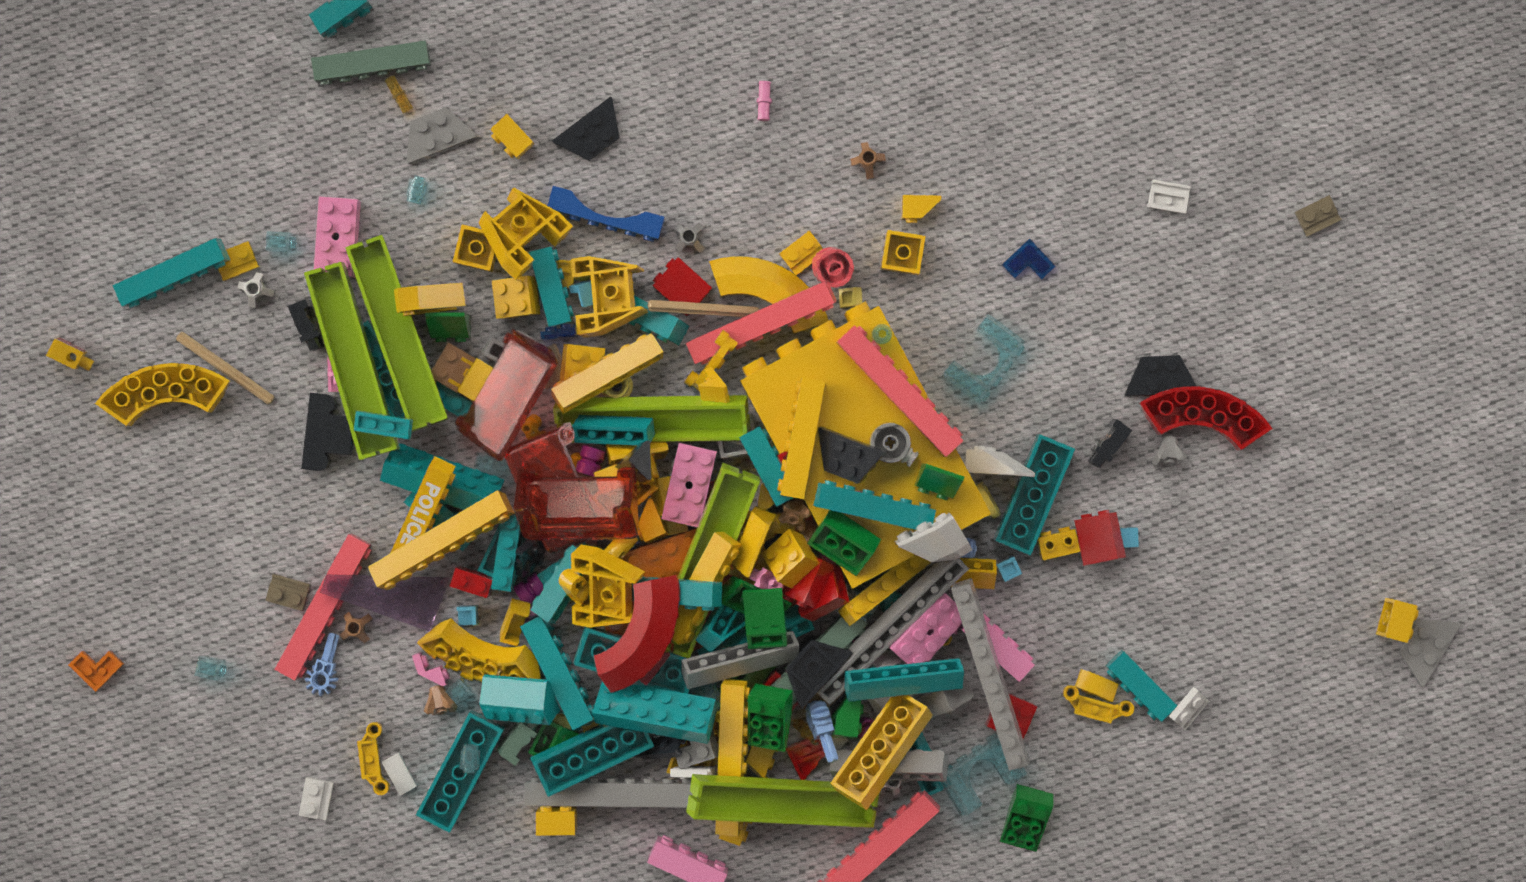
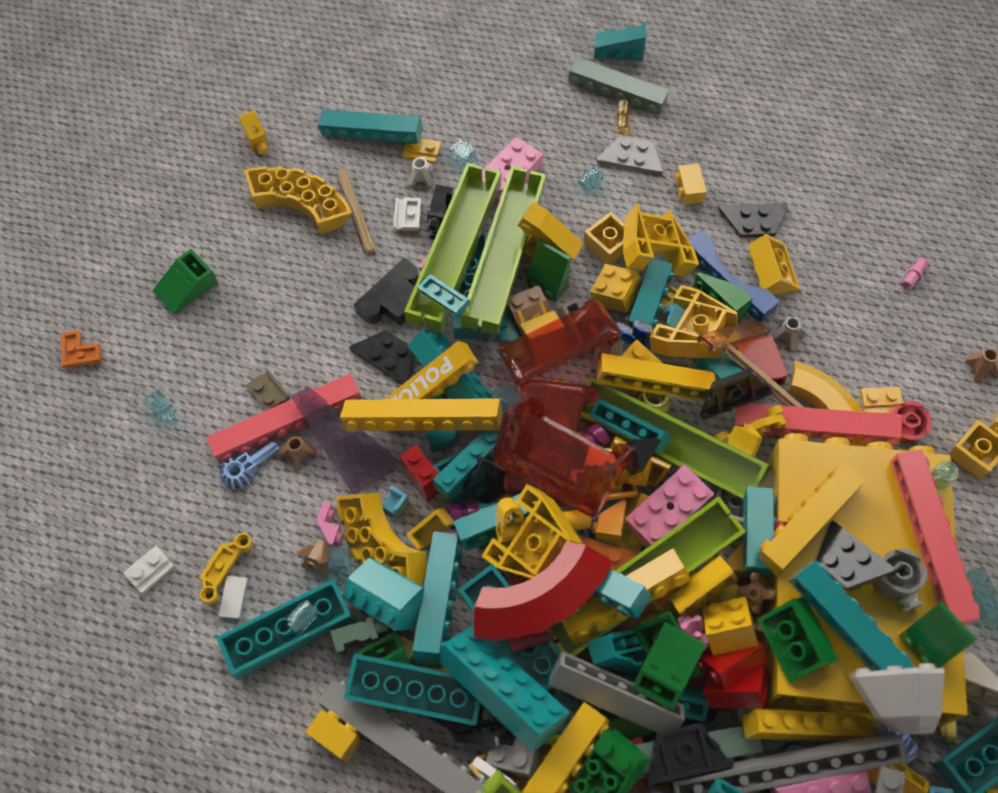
camera: 35 degrees right, 25 degrees down
(133, 546) = (184, 281): none -> green slope
(276, 341) = (407, 214): none -> white plate
(362, 490) = (386, 354): none -> black wing
(618, 247) = (724, 292): none -> slope
(638, 176) = (773, 265): none -> yellow slope
(647, 288) = (732, 335): none -> clear orange tile
(679, 341) = (734, 392): none -> black wing

